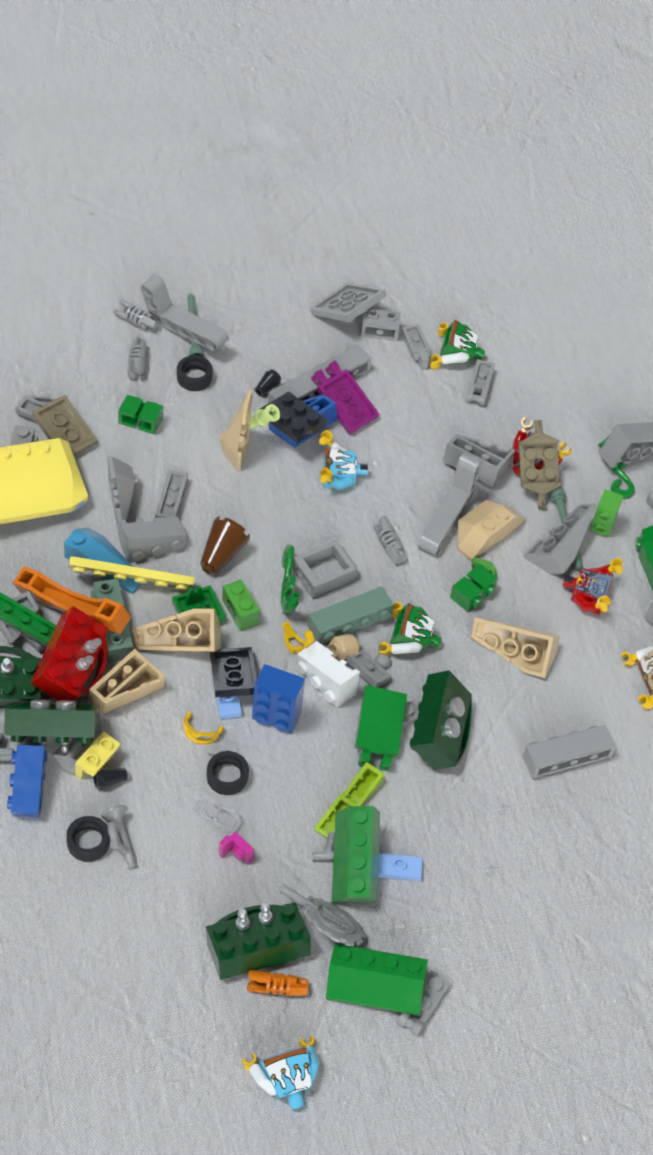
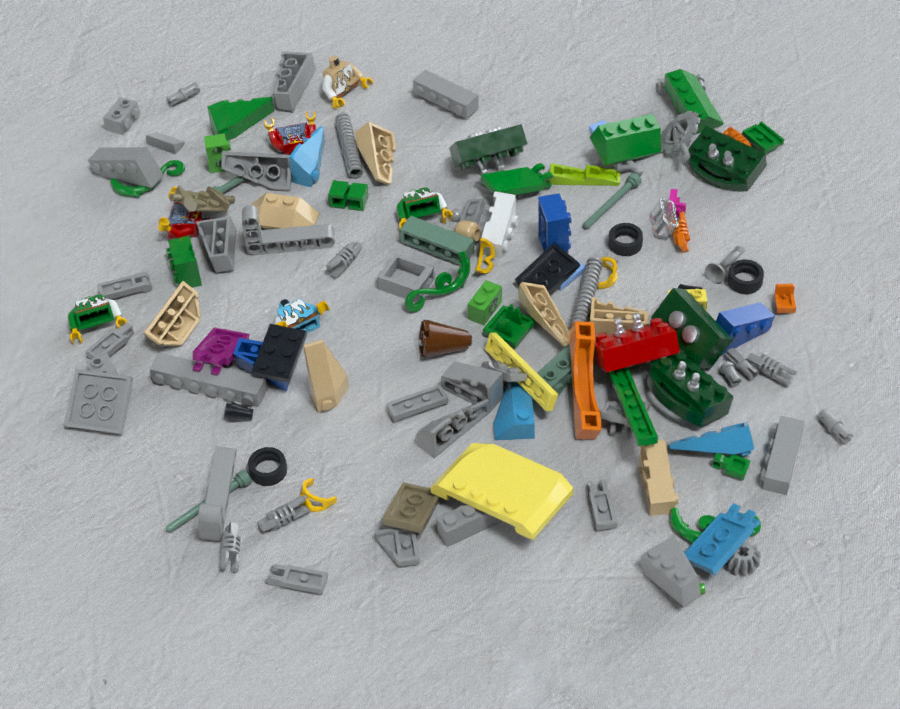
camera: 115 degrees left, 5 degrees down
(28, 847) = (784, 298): none -> orange bracket
(71, 338) = (298, 578): none -> light grey hinge
(135, 409) = (348, 471): green piece -> none
(138, 558) = (510, 374): none -> light grey hinge
(141, 378) = (325, 502): none -> yellow helmet
(187, 693) = (587, 290): none -> light grey piece
(196, 827) = (681, 233): none -> orange hinge
(263, 417) = (300, 370): yellowish green pin -> none
(268, 1016) = (763, 137): none -> green plate
(286, 1072) = (787, 109): torso -> none
(303, 837) = (632, 181): none -> sand green piece
(404, 386) = (175, 318): none -> tan wedge
(475, 423) = (183, 262): none -> green wedge
(486, 564) = (320, 200): bright green arm -> none
(544, 579) = (307, 158): none -> dark azure wedge
(566, 634) = (348, 145): none -> light grey piece

